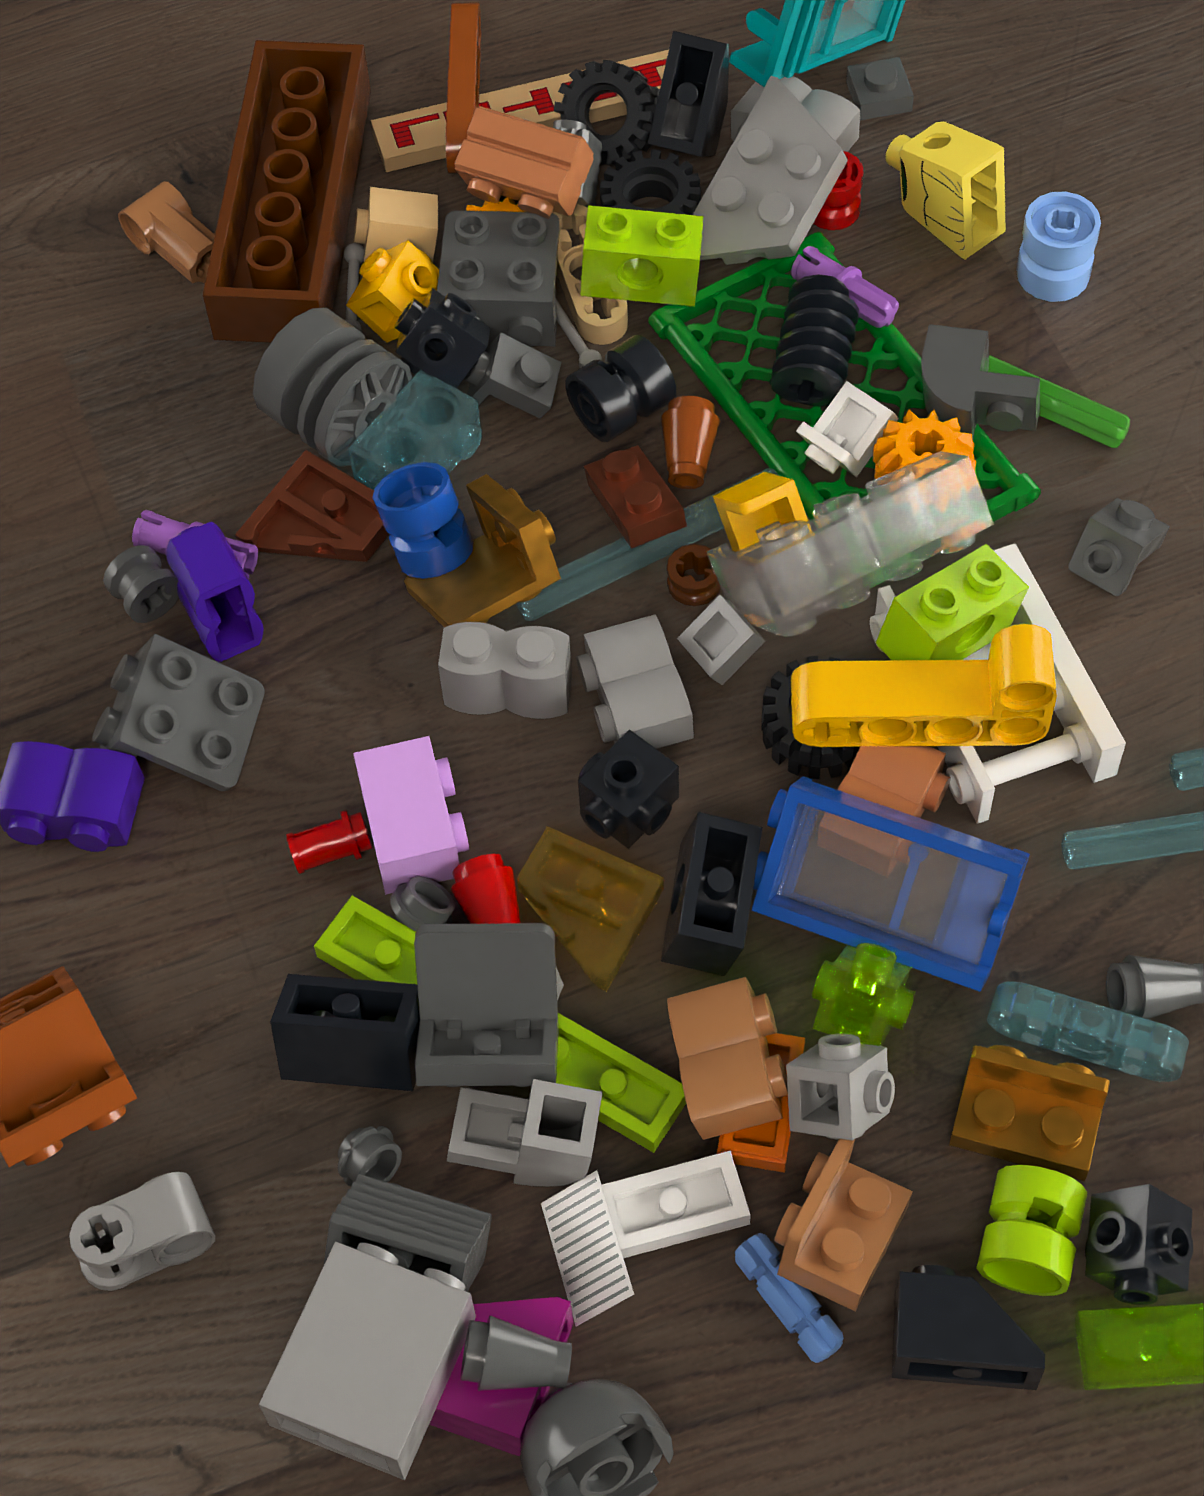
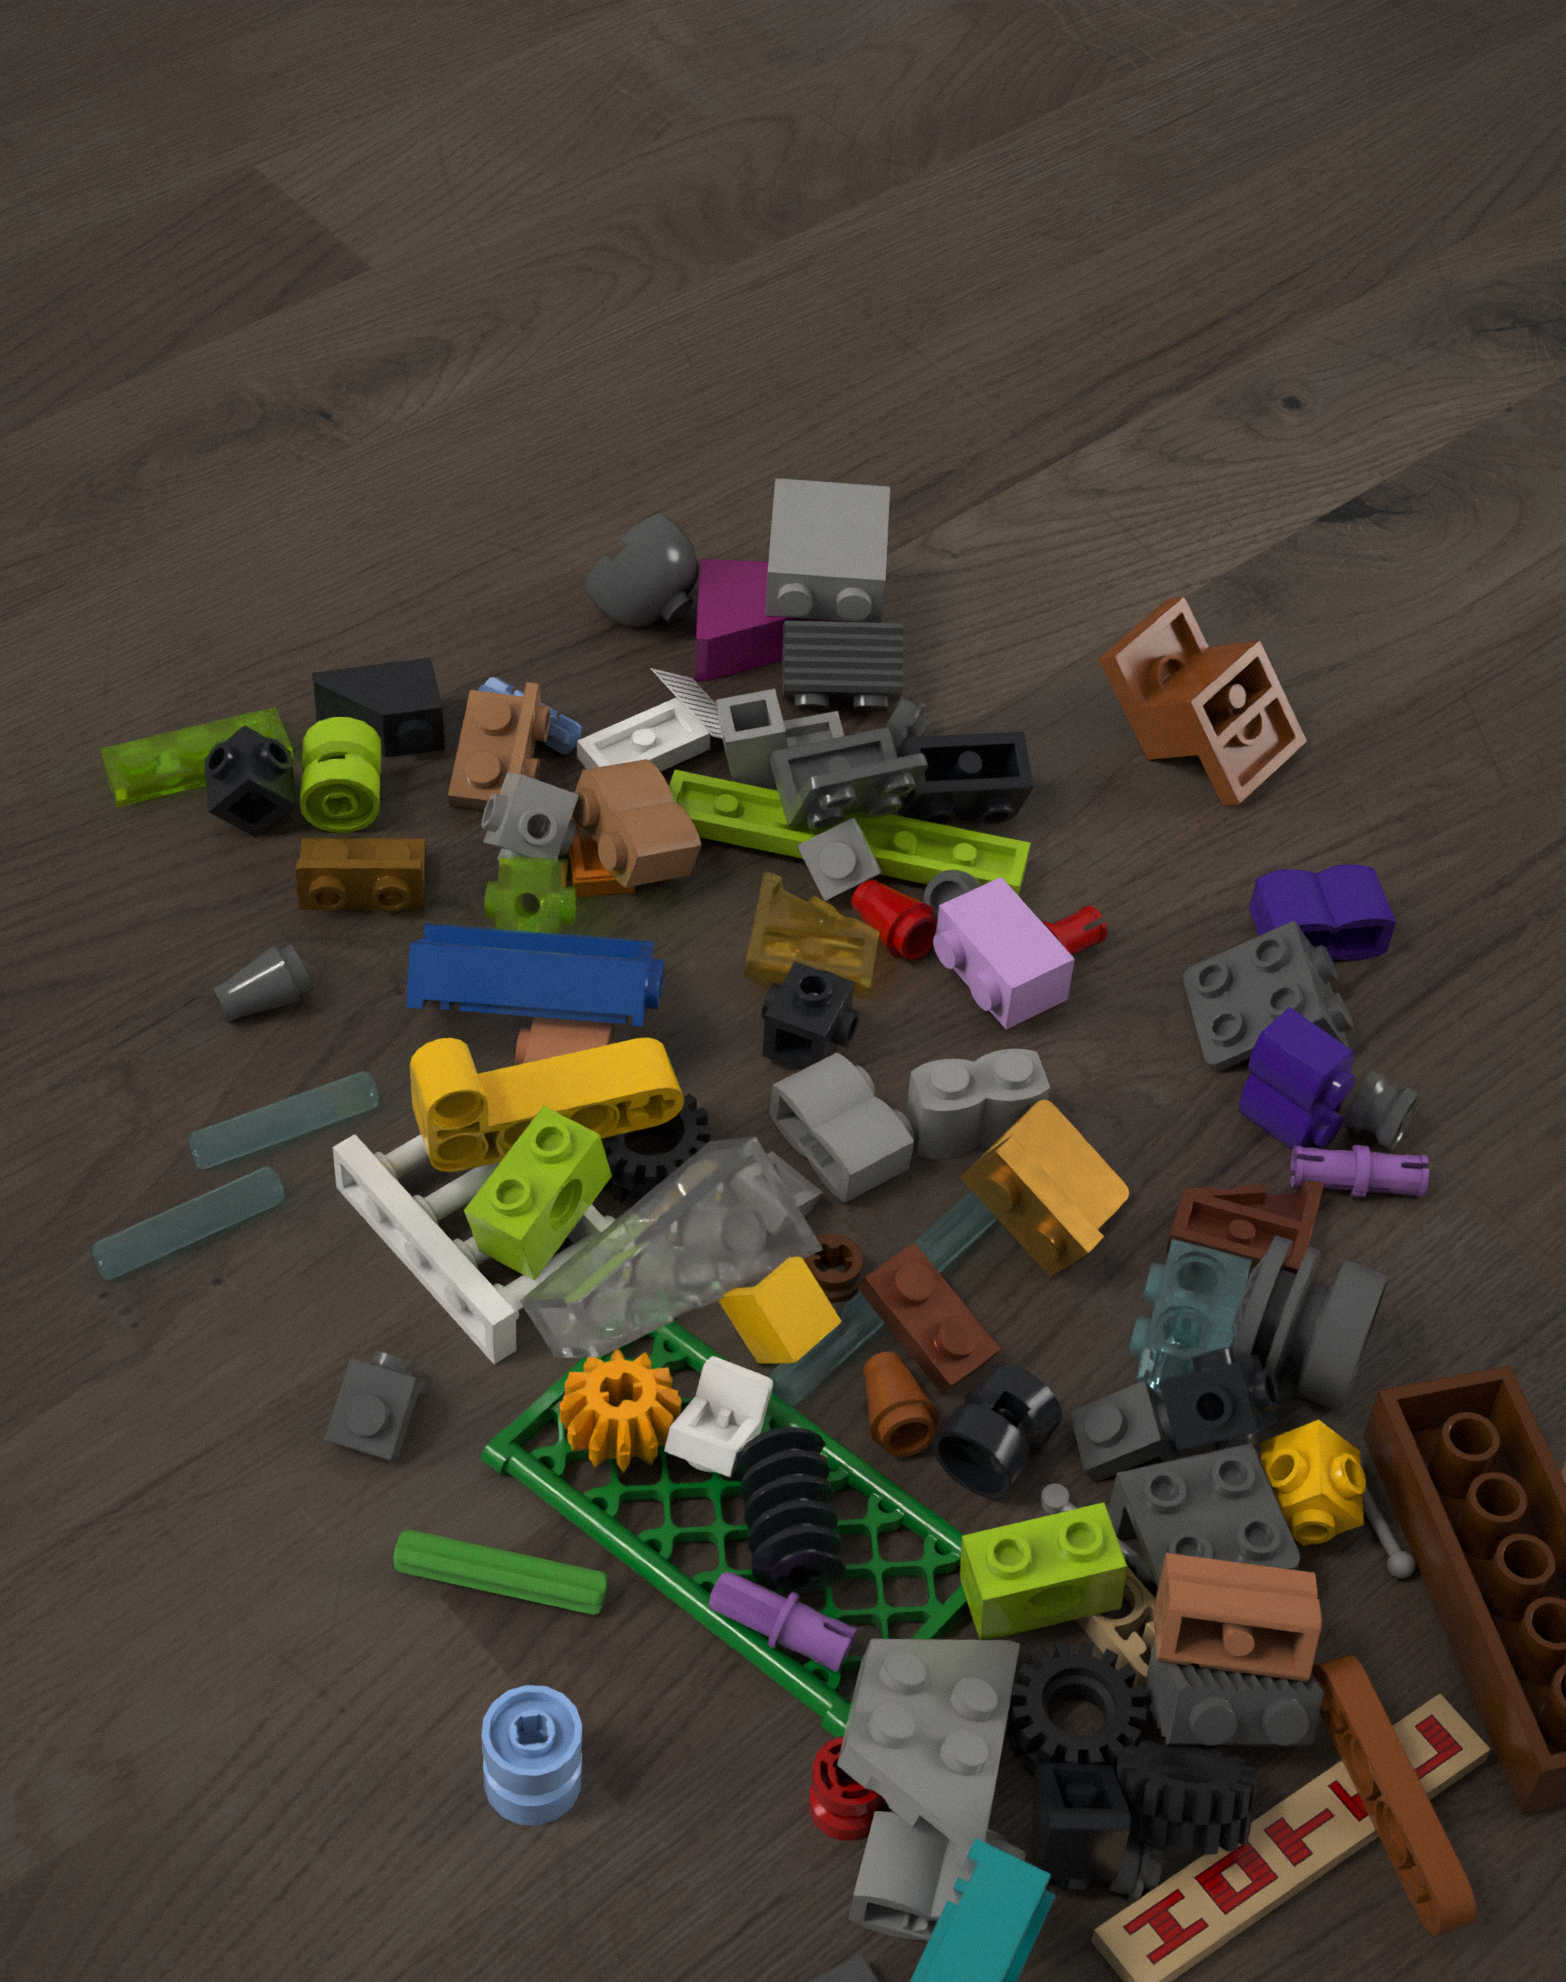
camera: 155 degrees right, 10 degrees down
(149, 1228) = (1053, 637): light grey piece -> none
(395, 218) = (1358, 1563): tan brick -> none
(423, 520) = (1136, 1207): blue wheel -> none
(512, 1357) = (723, 577): dark grey cone -> none
(712, 894) = (694, 943): black brick -> none
(952, 185) = (701, 1810): light yellow torso -> none
(961, 387) = (601, 1495): dark grey brick -> none
(1088, 1031) = (370, 922): clear light blue beam -> none

